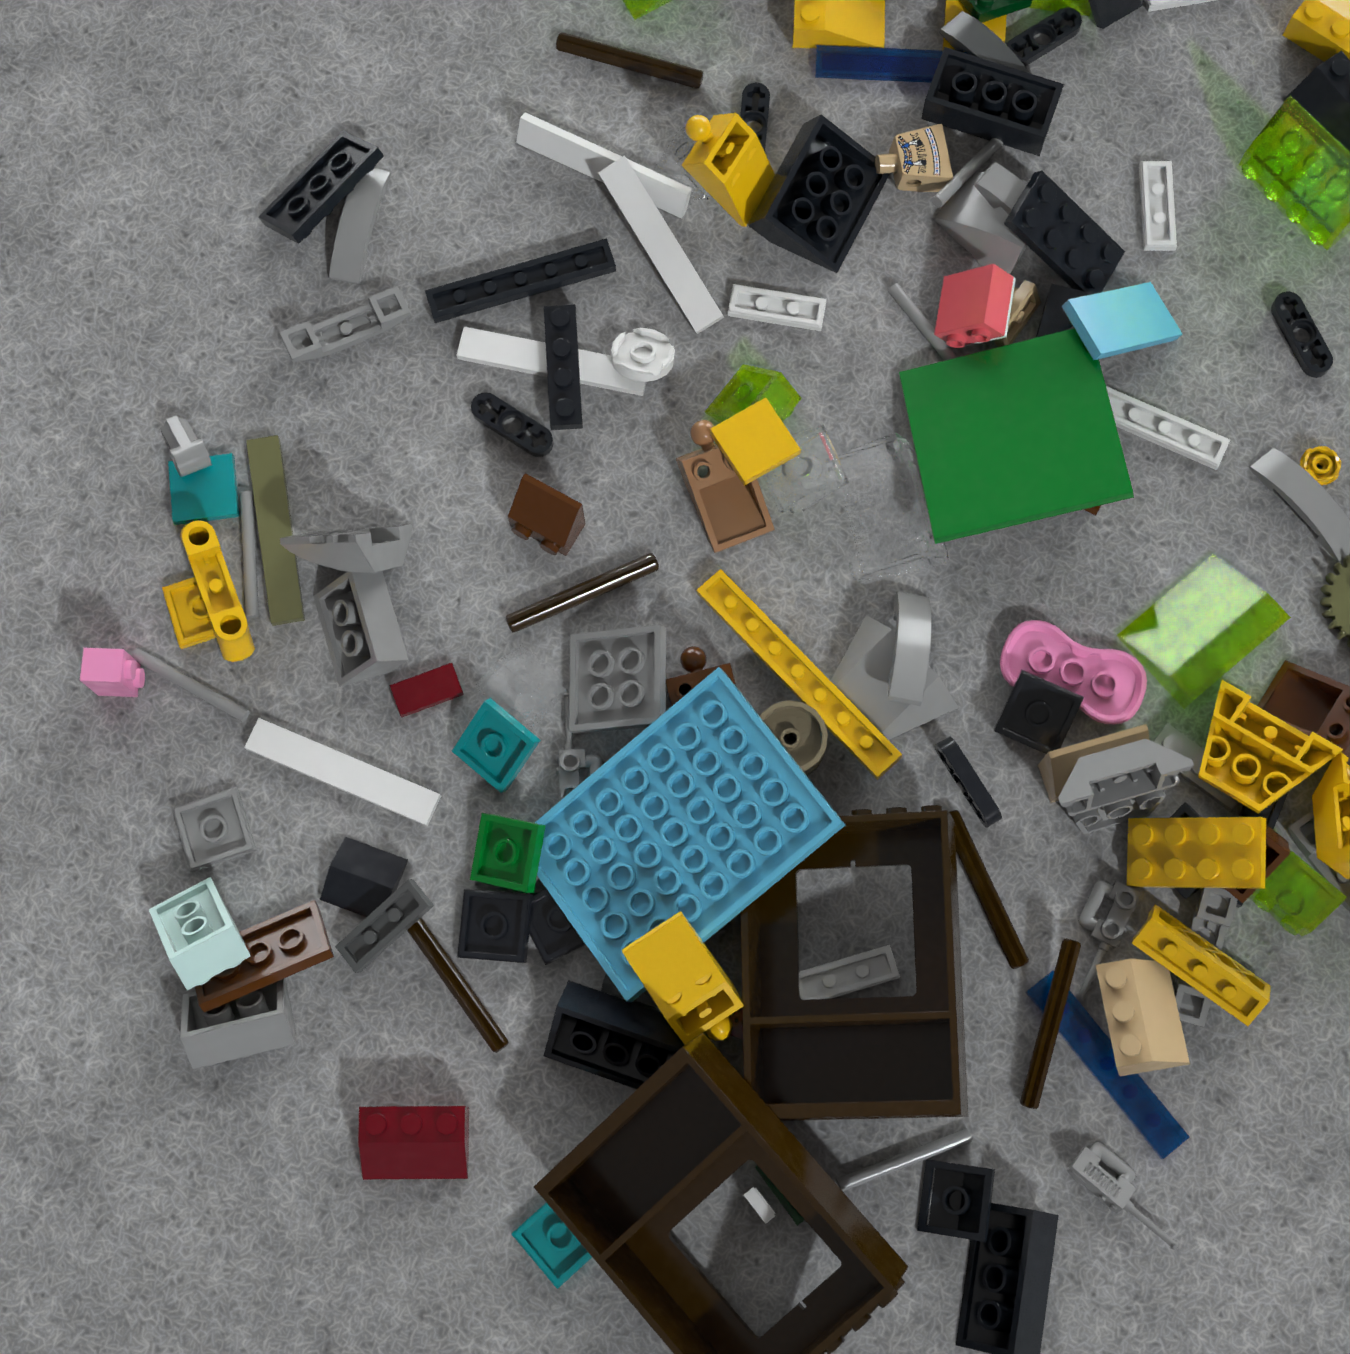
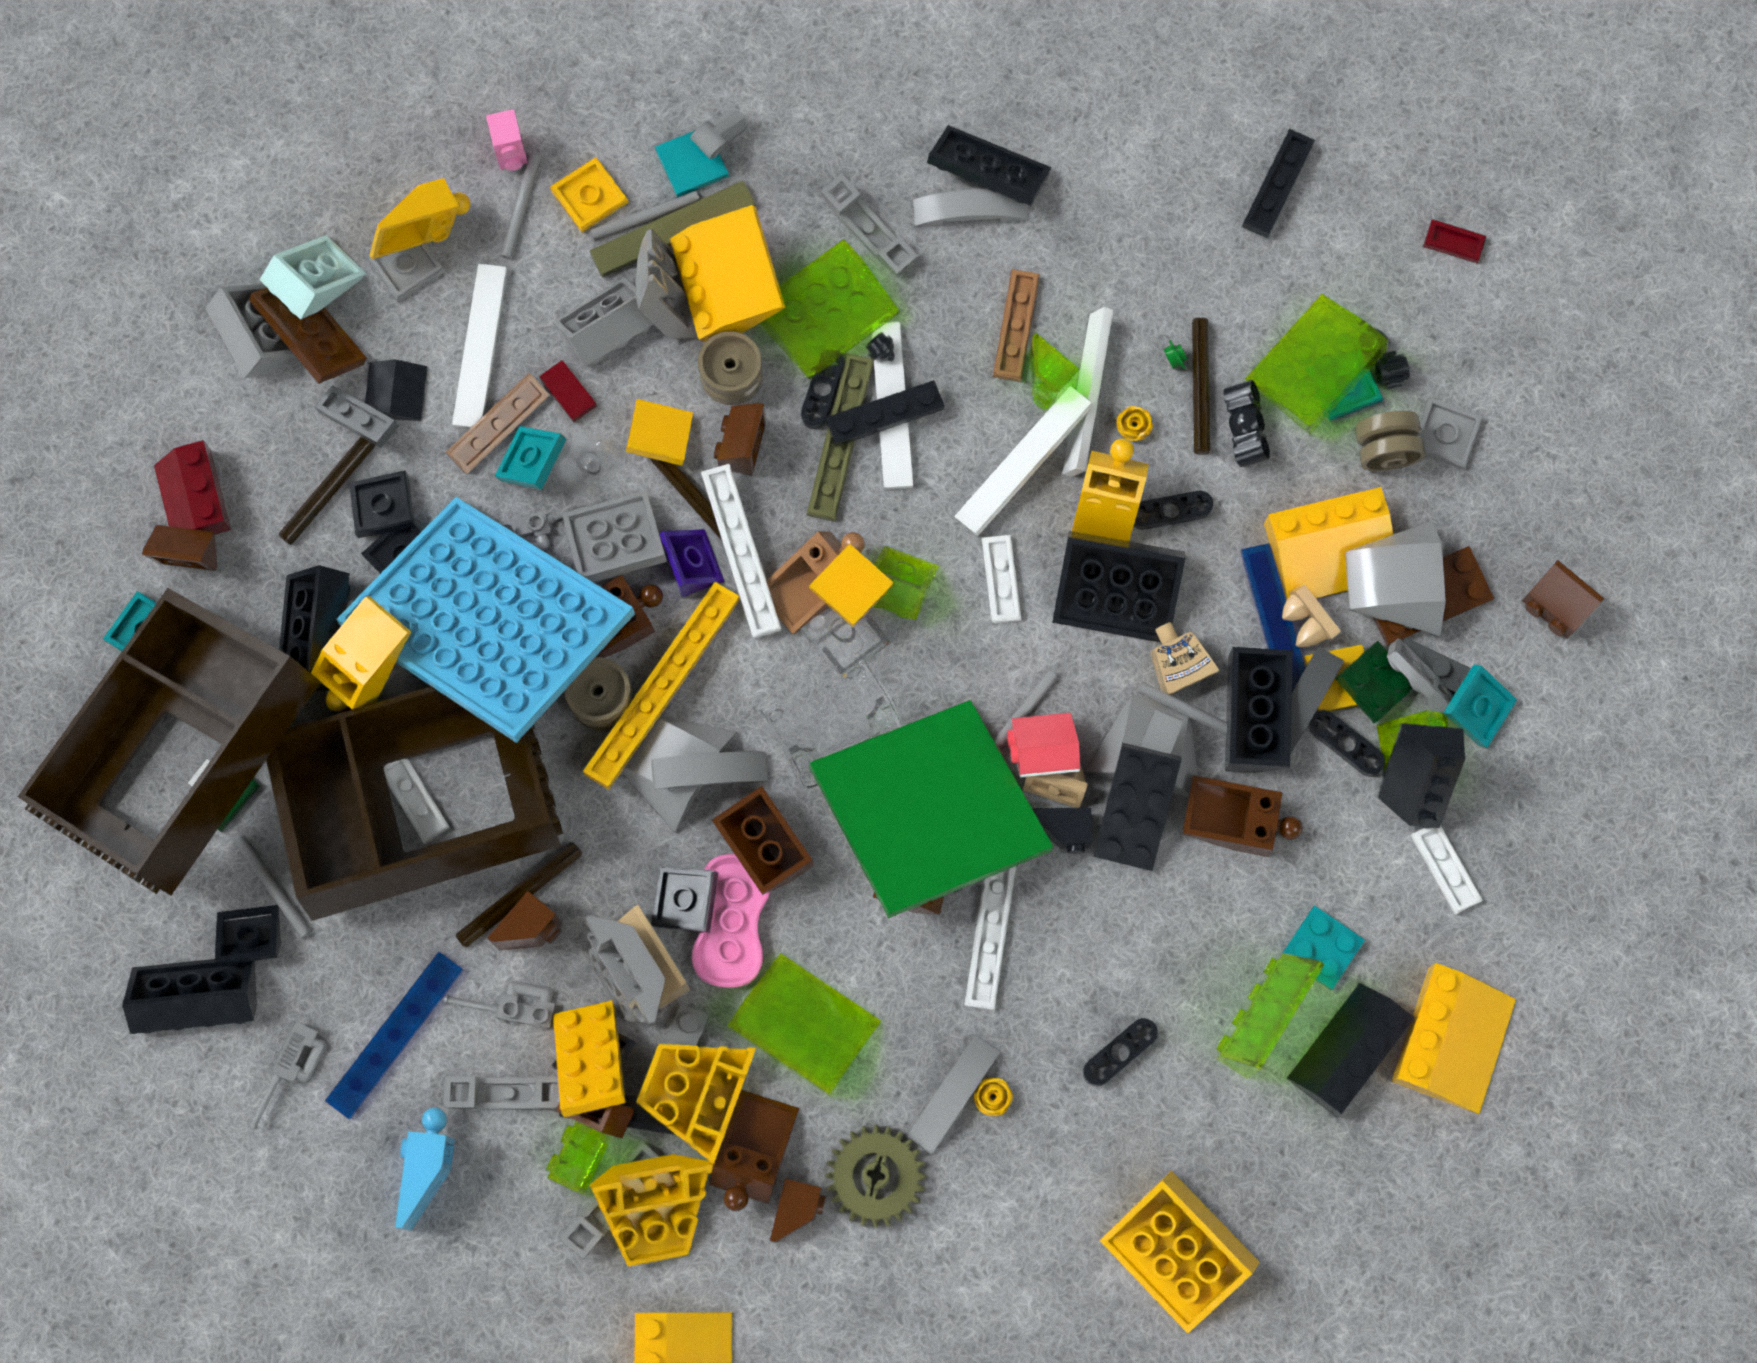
camera: 70 degrees right, 0 degrees up
(174, 788) = (419, 218): none -> yellow slope
(217, 591) = (601, 198): yellow plate -> none
(357, 476) = (727, 273): none -> yellow slope
(427, 393) = (829, 309): none -> clear neon green slope
(440, 773) = (497, 423): none -> medium nougat tile
(459, 488) = (734, 352): none -> dark tan wheel
(480, 1163) = (182, 547): none -> reddish brown slope
(488, 349) = (881, 347): none -> black plate
(504, 215) = (1016, 325): none -> medium nougat tile
(507, 852) = (442, 493): green plate -> none
(509, 602) = (659, 432): none -> yellow tile
(520, 280) = (957, 356): black plate -> none
(575, 191) = (1049, 373): none -> clear neon green slope
(590, 72) = (1175, 355): none -> green plate
(596, 433) = (835, 460): none -> olive tile
(642, 355) = (917, 476): white tile -> none
(651, 123) = (1134, 415): none -> yellow plate
(666, 605) = (691, 560): none -> dark purple slope
(671, 552) = (741, 551): none -> white tile
(686, 26) = (1246, 423): none -> black piece
(915, 21) = (1319, 623): none -> tan tile
(963, 772) = (613, 848): black beam -> none
(1000, 612) = (763, 841): none -> reddish brown slope
(1031, 883) = (526, 926): none -> reddish brown slope
(1050, 1023) = (414, 975): dark brown axle -> none
(1096, 151) = (1231, 813): none -> reddish brown slope
(1121, 320) = (1071, 878): medium azure tile -> none
(1142, 1016) = (436, 1047): tan slope -> none
(1157, 206) = (1209, 890): white tile -> none
(1202, 965) = (492, 1088): yellow fence -> none
(1237, 118) = (1327, 941): none -> teal plate
(1272, 1059) = (425, 1167): none -> medium azure slope

